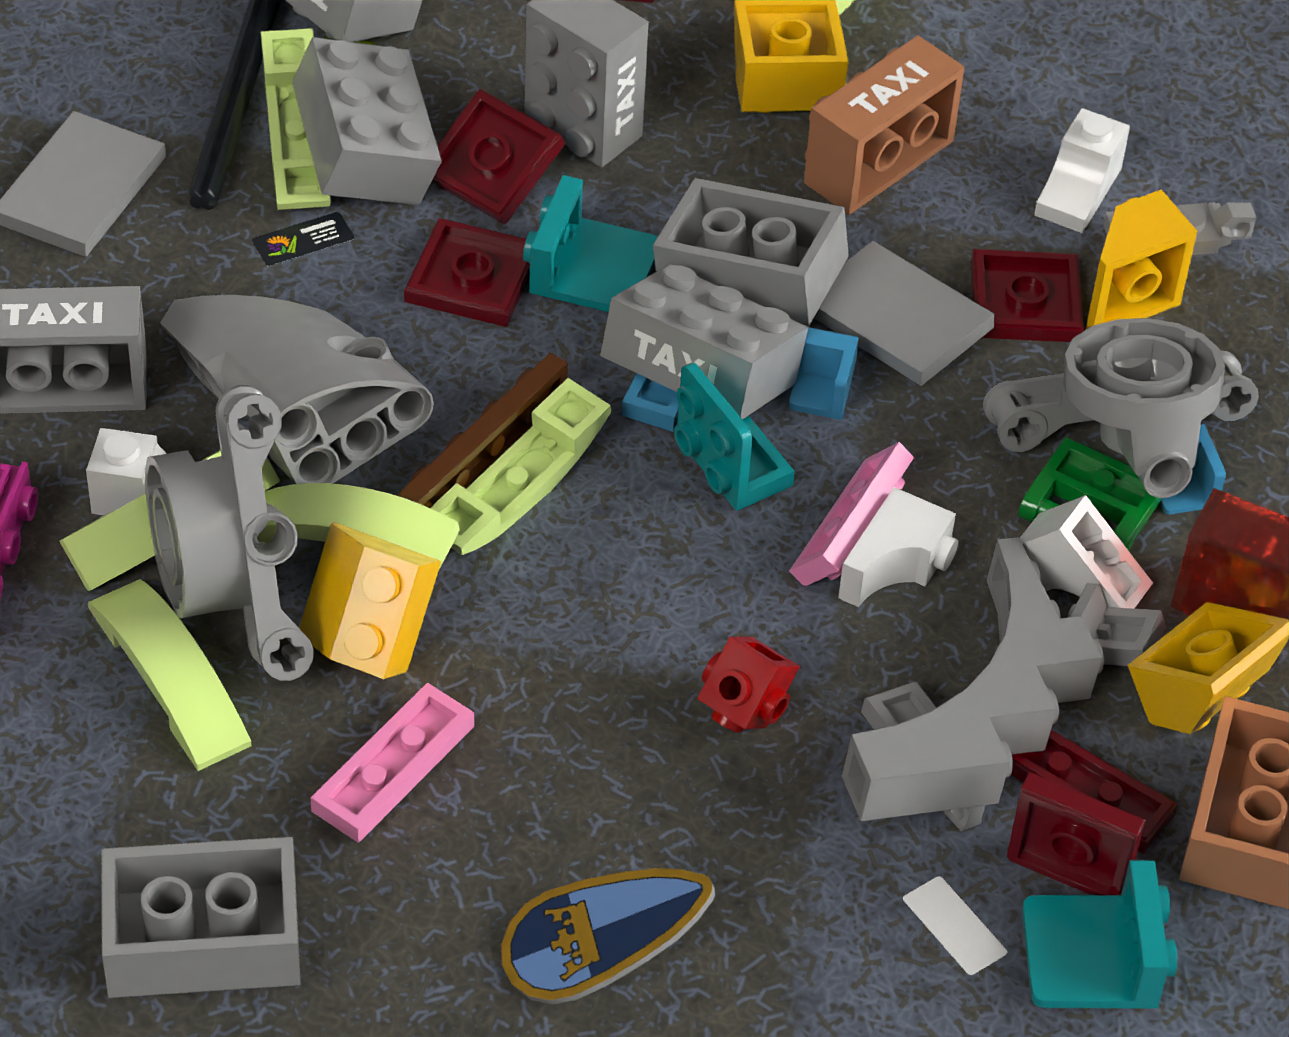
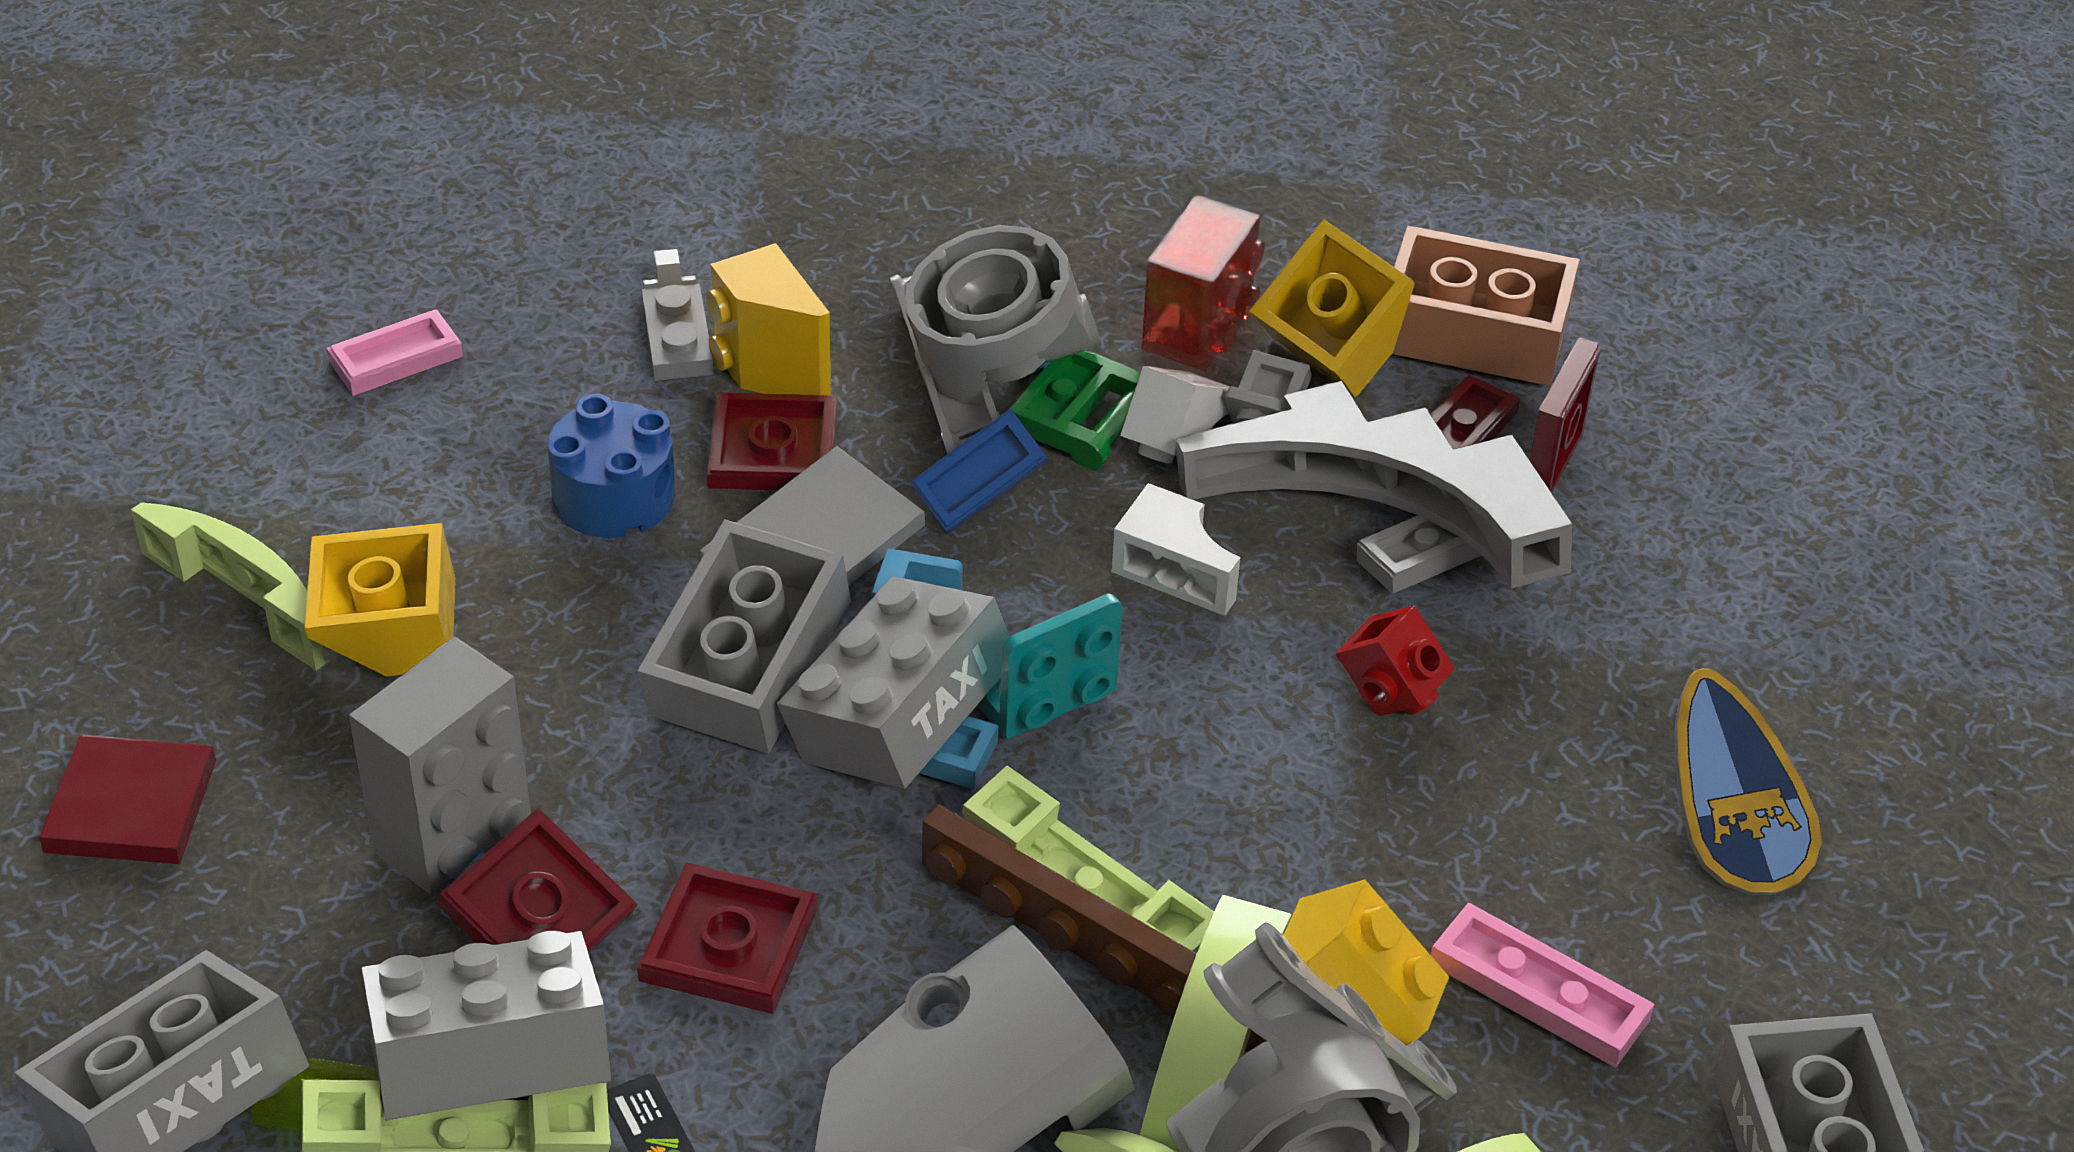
camera: 90 degrees left, 5 degrees down
(582, 257) = (719, 808): teal bracket -> none
(851, 515) = (1145, 585): bright pink plate -> none
(883, 124) = (533, 513): nougat brick -> none
(955, 925) = (1632, 546): white sticker -> none
(960, 180) = (611, 467): none -> blue brick
(972, 408) = (979, 471): none -> blue tile
(1083, 170) = (579, 359): white arch -> none
(1101, 946) = (1653, 425): teal bracket -> none
(1110, 64) = (394, 352): none -> bright pink tile

